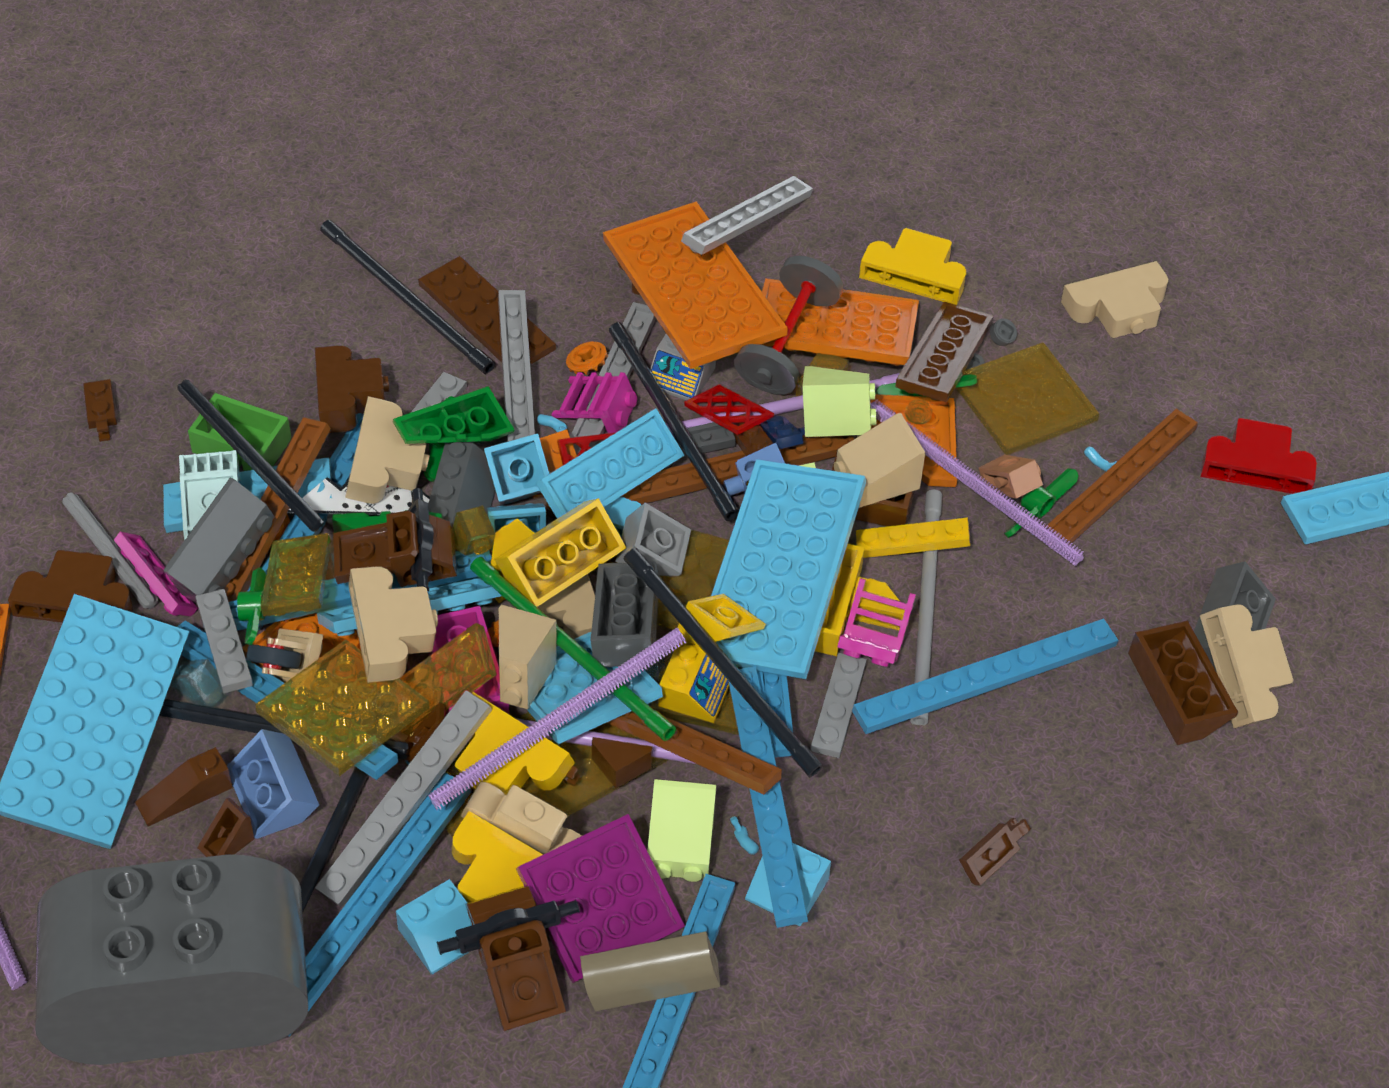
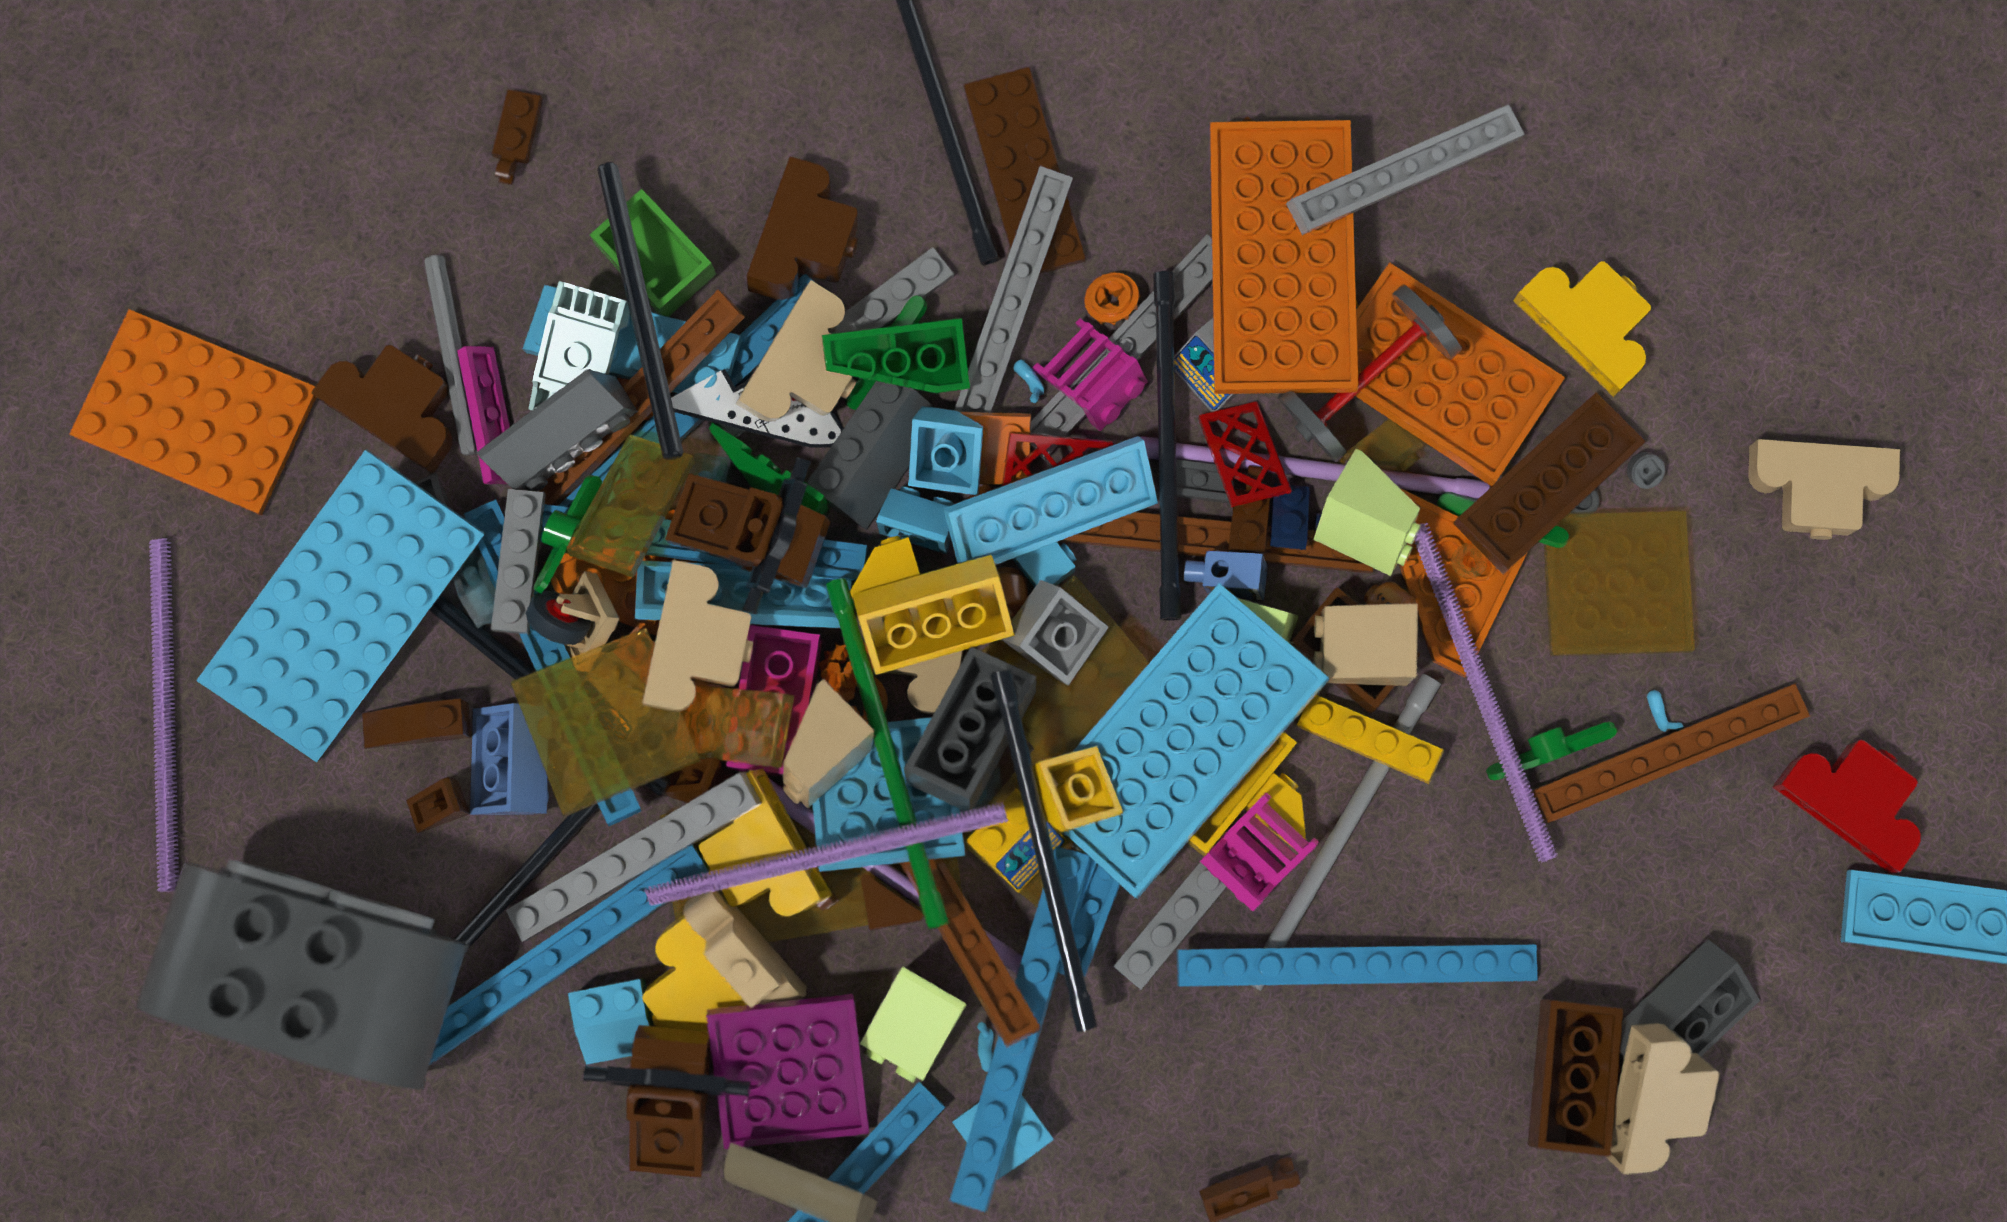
camera: 30 degrees right, 30 degrees up
(473, 531) = (849, 539): clear yellow slope -> none
(1012, 475) = (1530, 706): nougat brick -> none

